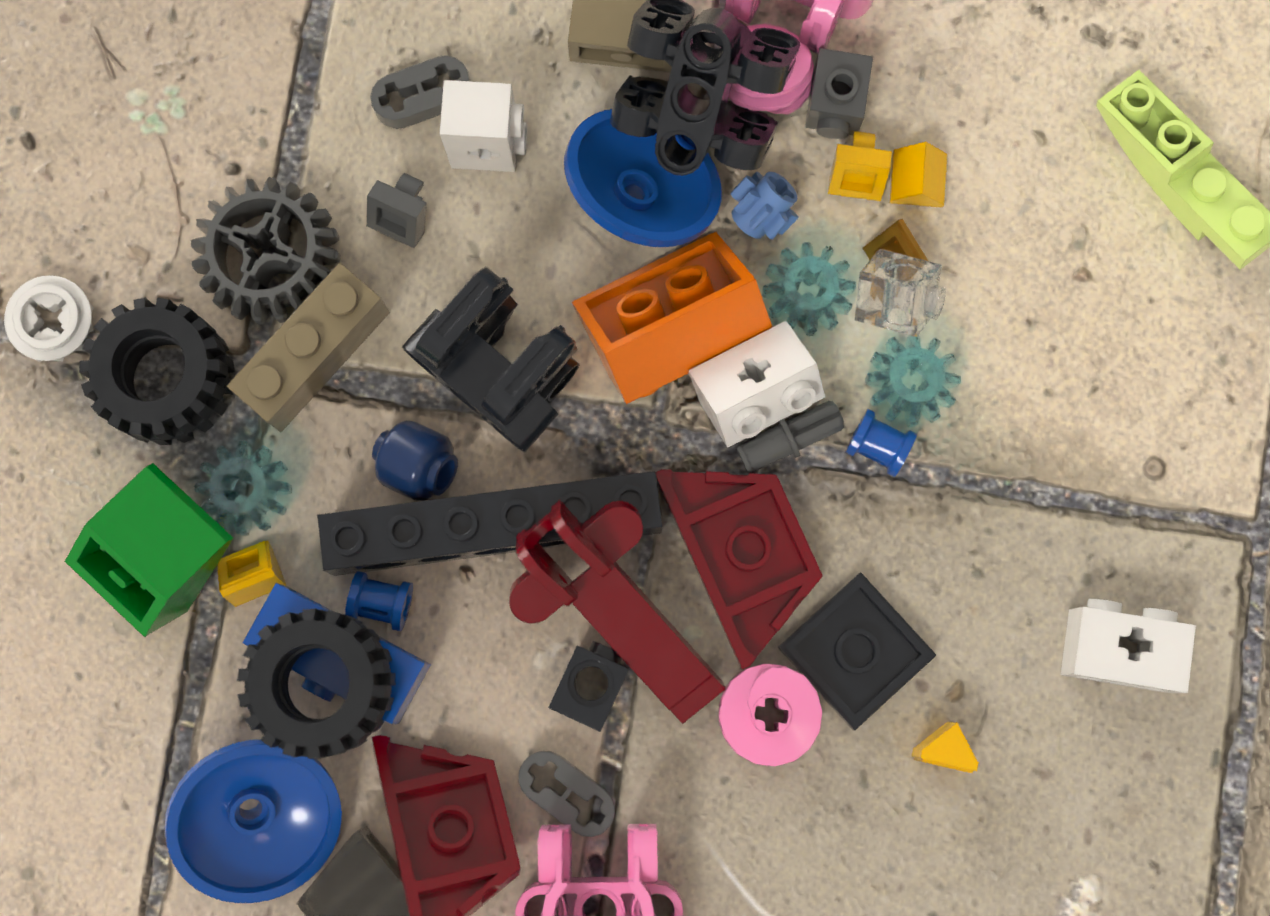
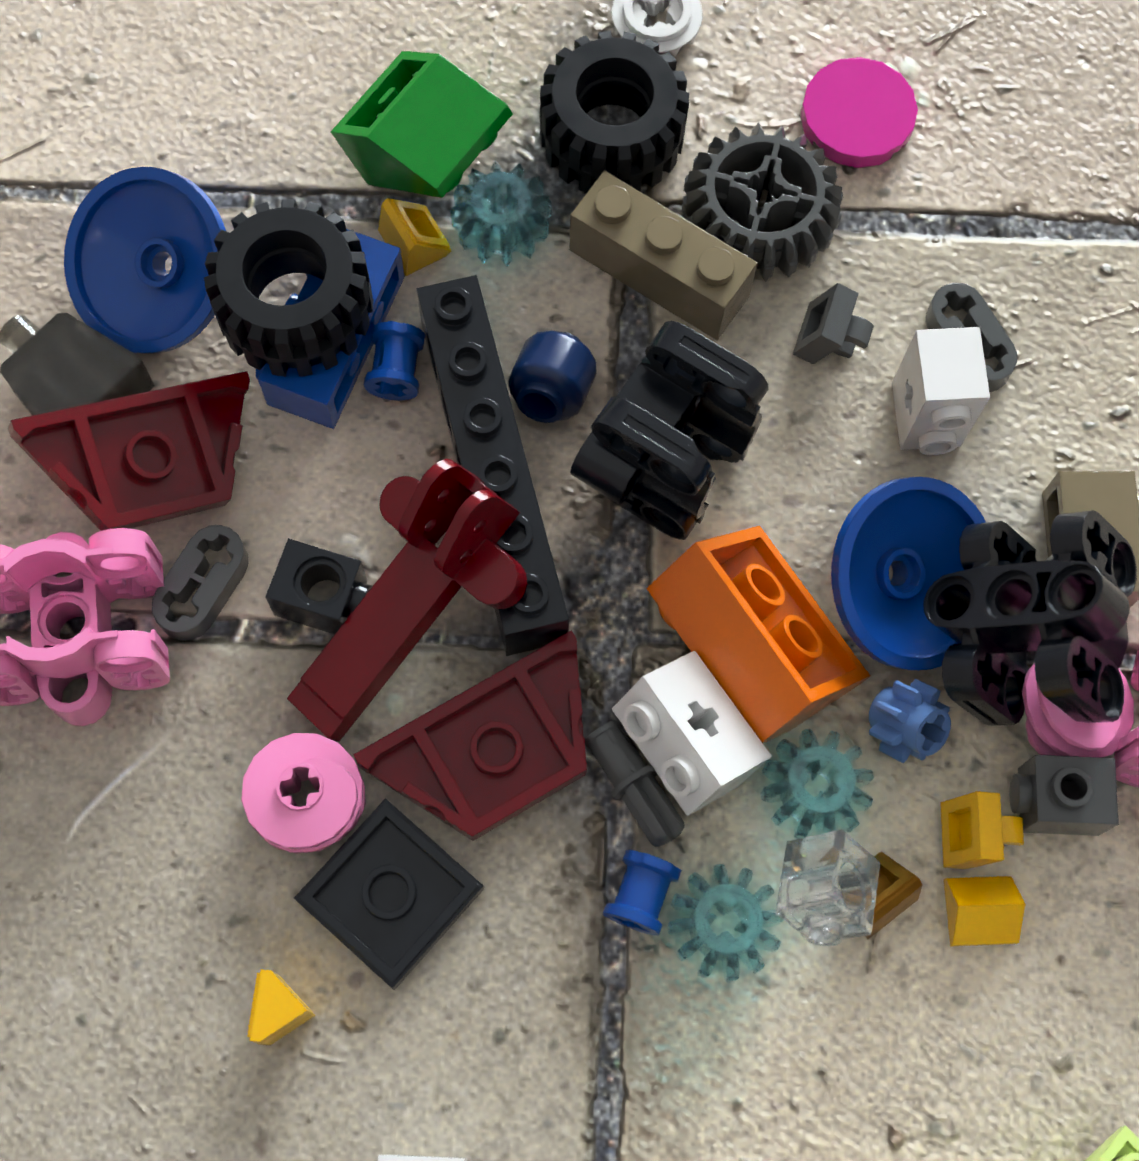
camera: 80 degrees right, 10 degrees down
(180, 149) = (859, 111): none -> dark pink tile

